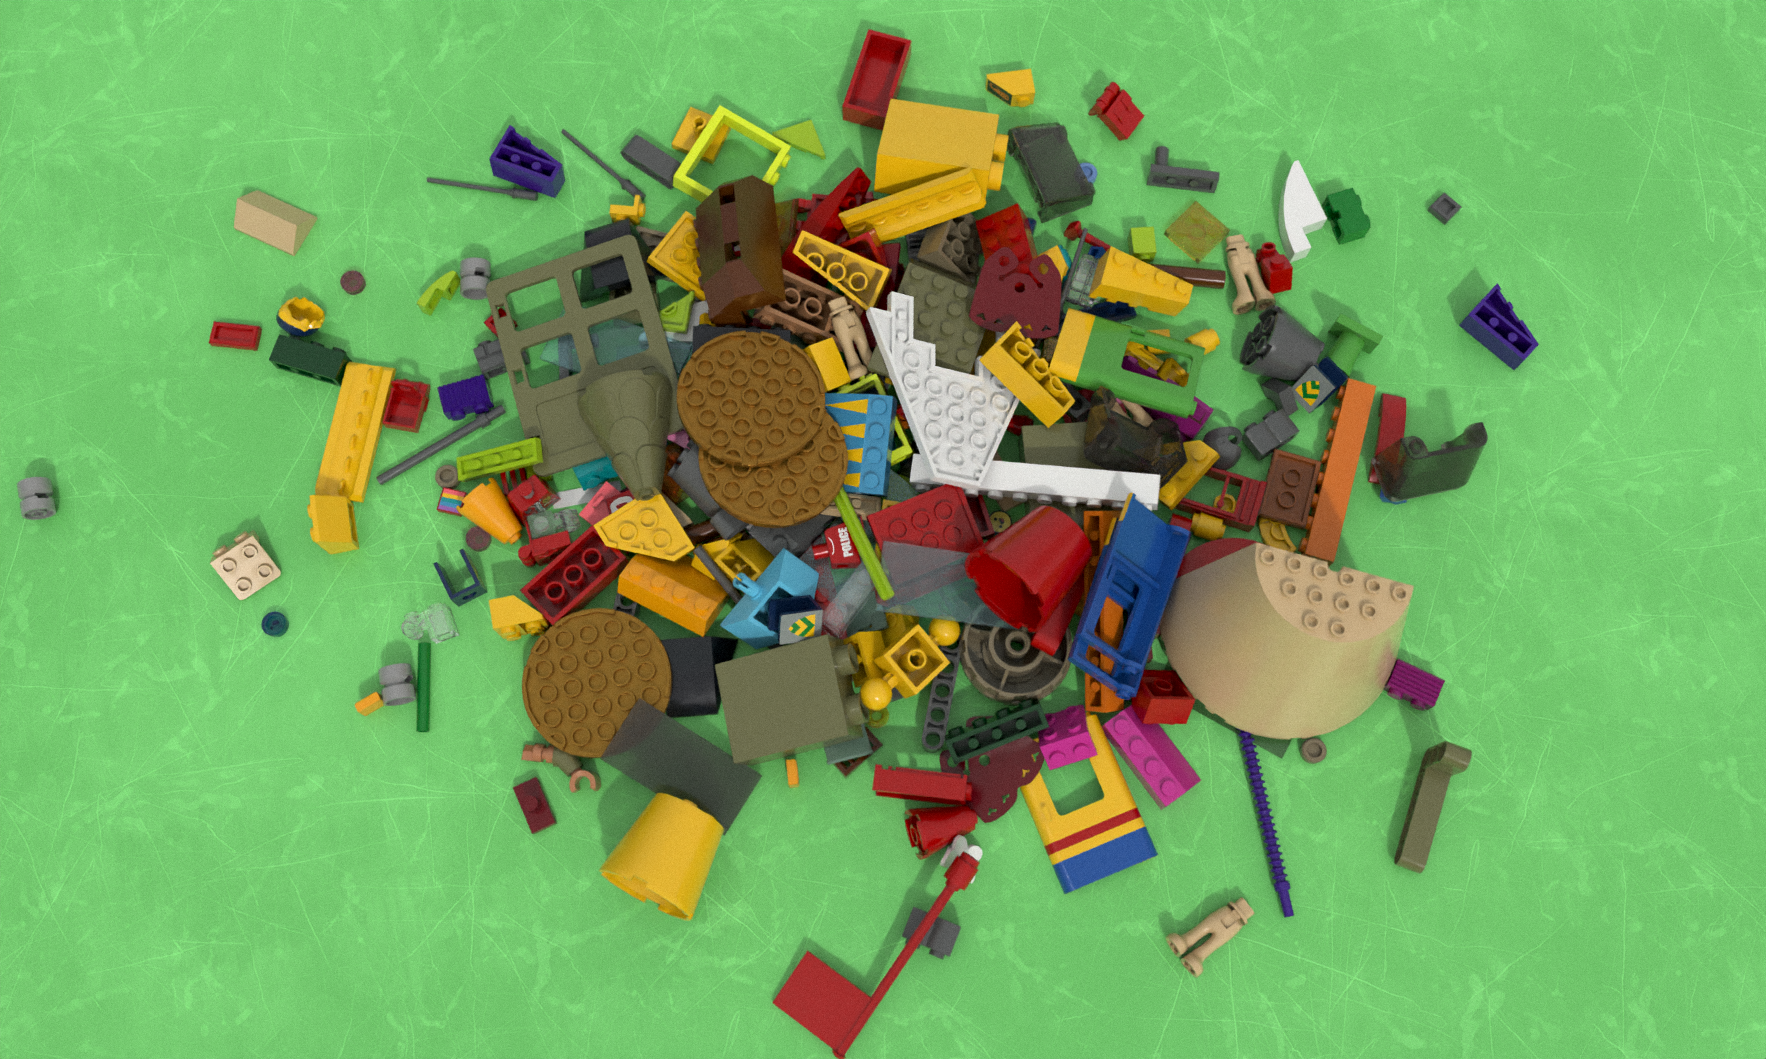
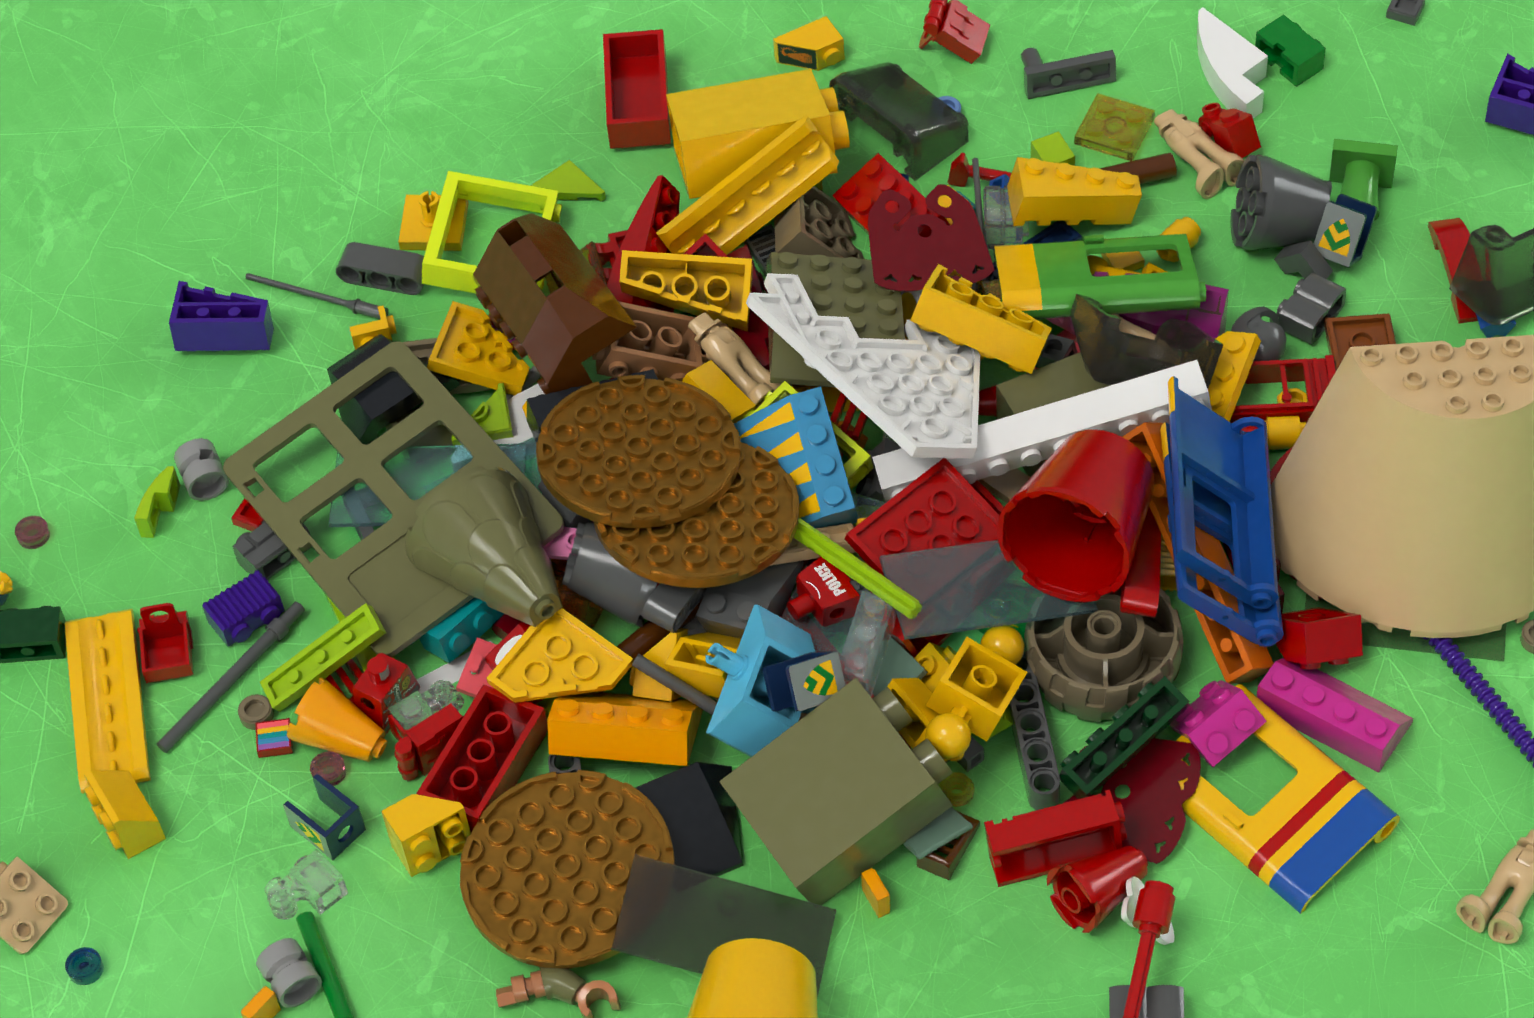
camera: 15 degrees left, 20 degrees down
(514, 193) = (210, 362): dark grey piece -> none
(1338, 470) = (1406, 277): orange brick -> none

